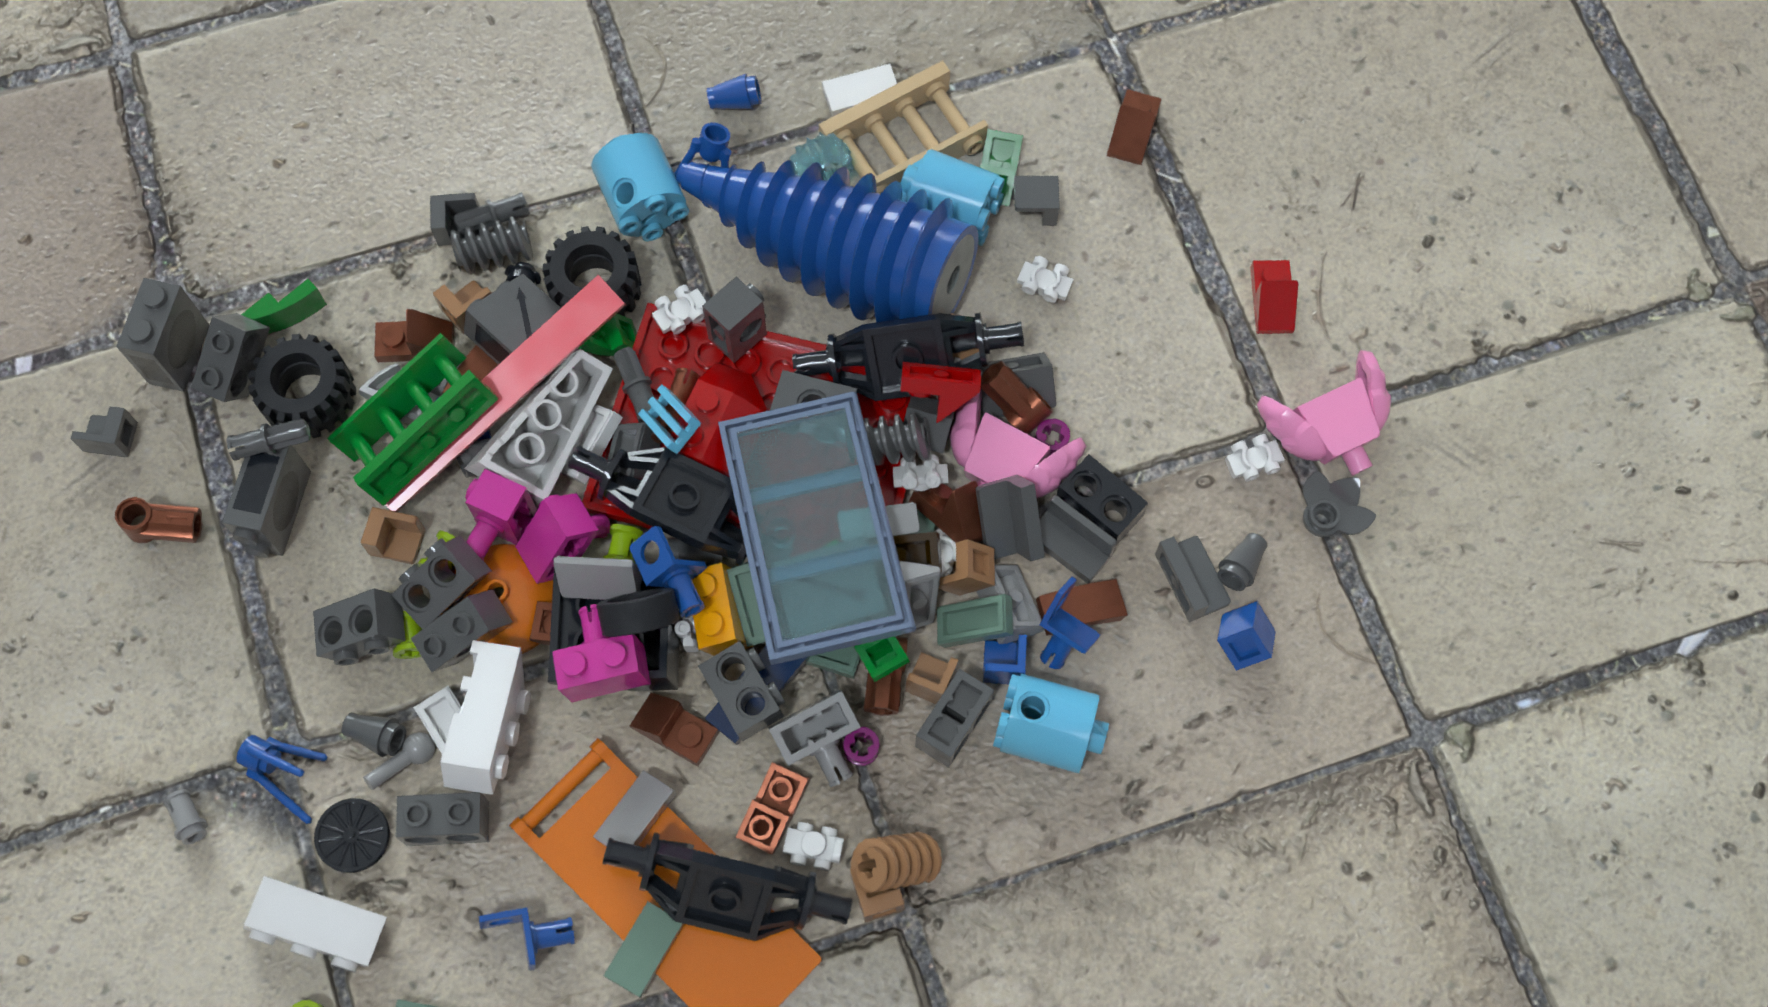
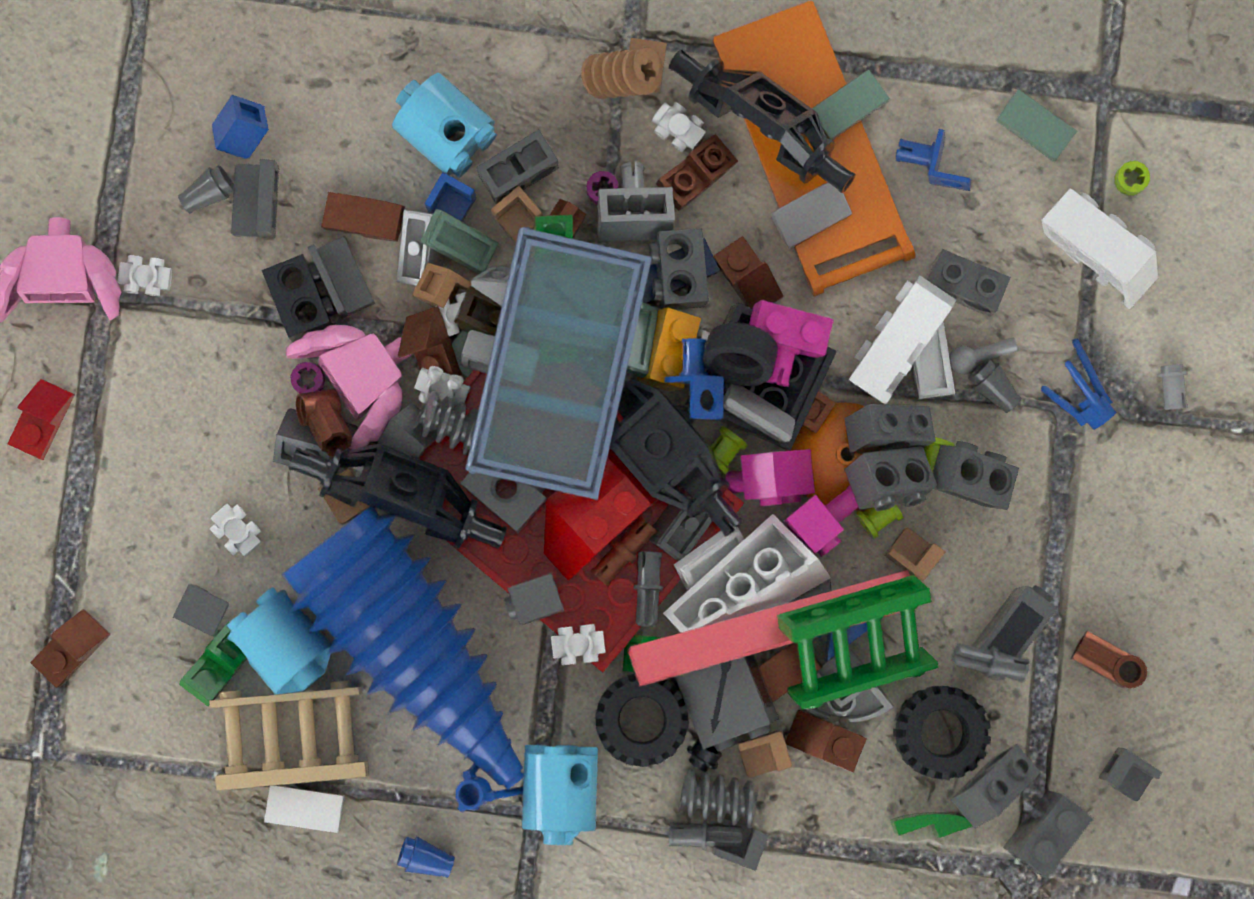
camera: 160 degrees left, 15 degrees up
(351, 835) = (1044, 310): black wheel -> none
(658, 409) = (643, 545): medium azure tile -> none
(826, 150) = (381, 736): clear light blue gear -> none
(951, 384) = (383, 440): red slope -> none
(1010, 518) = (384, 314): dark grey panel -> none
(1066, 630) = (388, 195): blue bracket -> none
(1337, 503) = (96, 204): dark grey plate -> none

